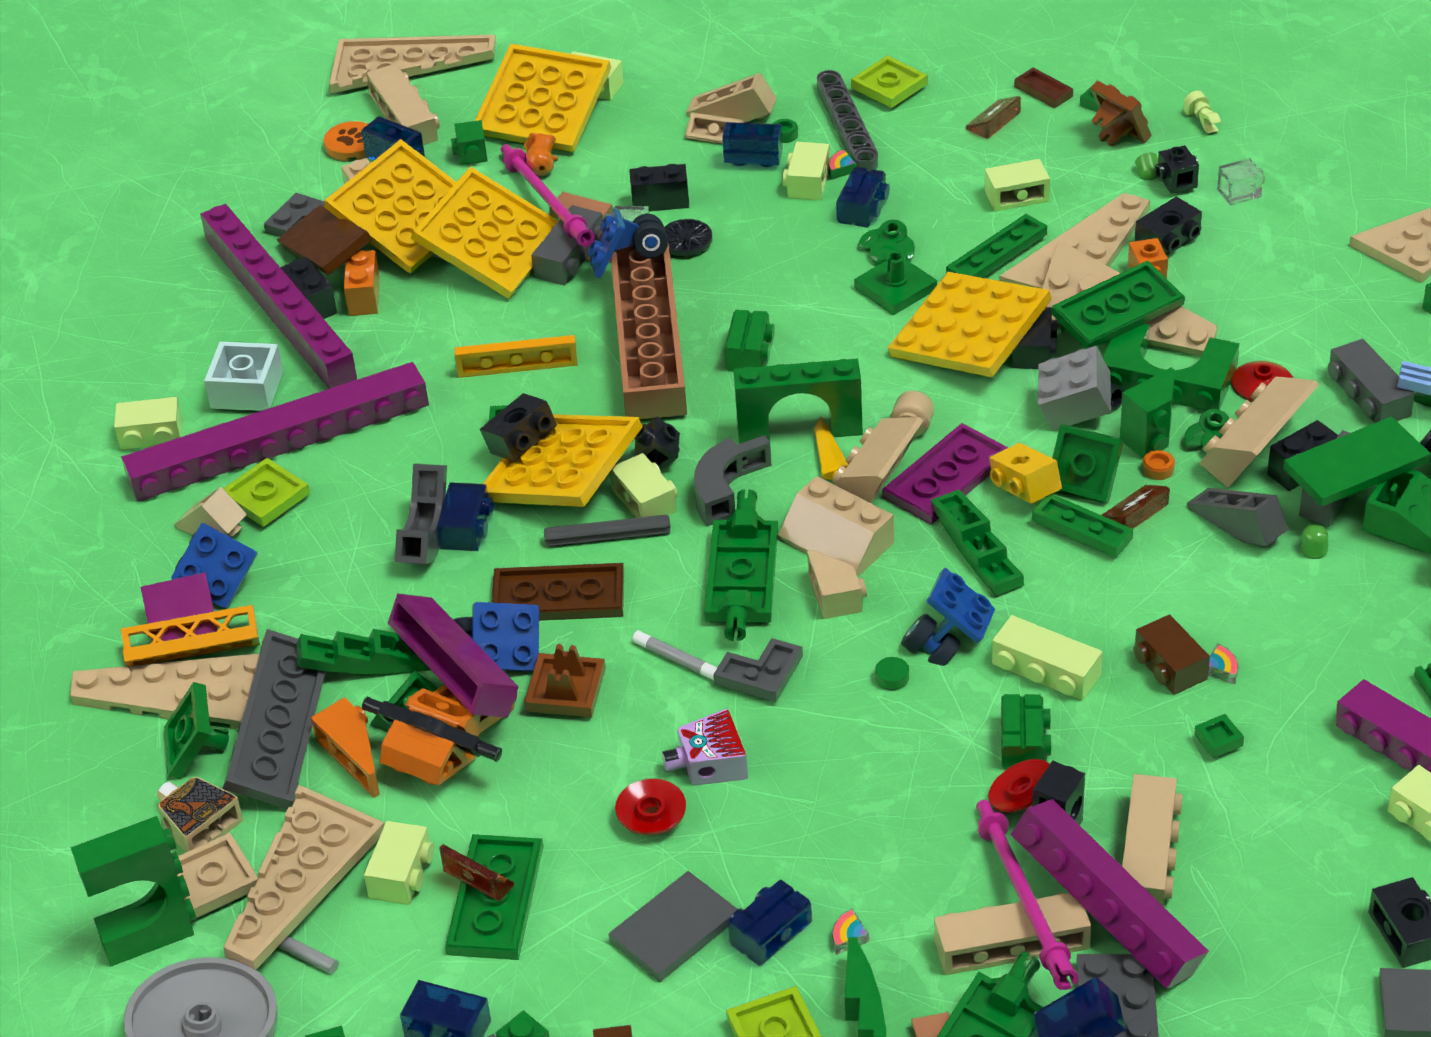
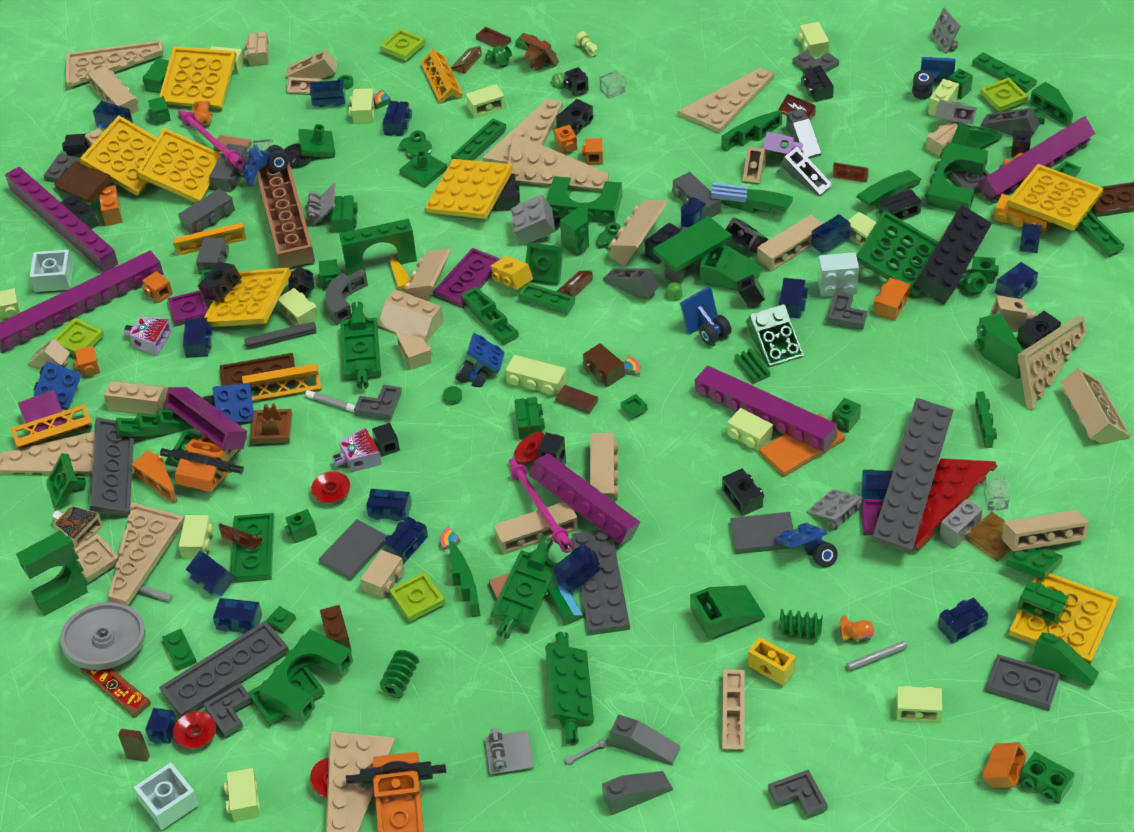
camera: 10 degrees left, 5 degrees up
(272, 533) = (86, 361): none -> orange brick
(323, 180) = (75, 145): none -> black brick
(340, 603) = (135, 397): none -> tan slope
(345, 141) = (83, 117): orange tile -> none
(381, 501) = (149, 334): none -> torso
(411, 933) = (210, 573): none -> clear blue brick
(413, 424) = (157, 287): none -> orange brick
(419, 537) = (173, 353): dark grey arch -> none
(465, 460) = (187, 307): none -> magenta tile
(473, 88) = (155, 75): none -> green brick
(513, 376) = (211, 253): none -> dark grey brick
(518, 311) = (206, 211): none -> dark grey brick
(585, 870) = (300, 526): none -> green brick
(598, 600) = (285, 376): none -> light orange fence
(647, 64) = (257, 49): none -> tan brick
(660, 187) = (277, 126): black brick -> none
(705, 433) = (328, 271): none -> green brick
(710, 322) = (319, 205): none -> light grey hinge
(718, 980) = (382, 574): none -> tan brick
(721, 220) = (316, 142): none -> green tile
(749, 853) = (389, 504): none -> clear blue brick
(761, 735) = (385, 439): none -> black brick
(848, 120) = (378, 72): dark grey beam -> none
(914, 405) = (444, 241): tan head -> none
(950, 130) = (442, 72): none -> light orange fence
(1053, 114) = (500, 54): none -> green animal
(1115, 709) = (576, 399): none -> copper tile
(1117, 305) = (551, 168): green tile -> none
(1158, 465) = (584, 258): orange tile -> none
(1195, 286) = (593, 151): none -> orange brick
(1252, 374) = (632, 199): red dish -> none
(1360, 586) = (701, 314): none -> blue plate
(1362, 407) = (692, 212): none -> clear blue brick

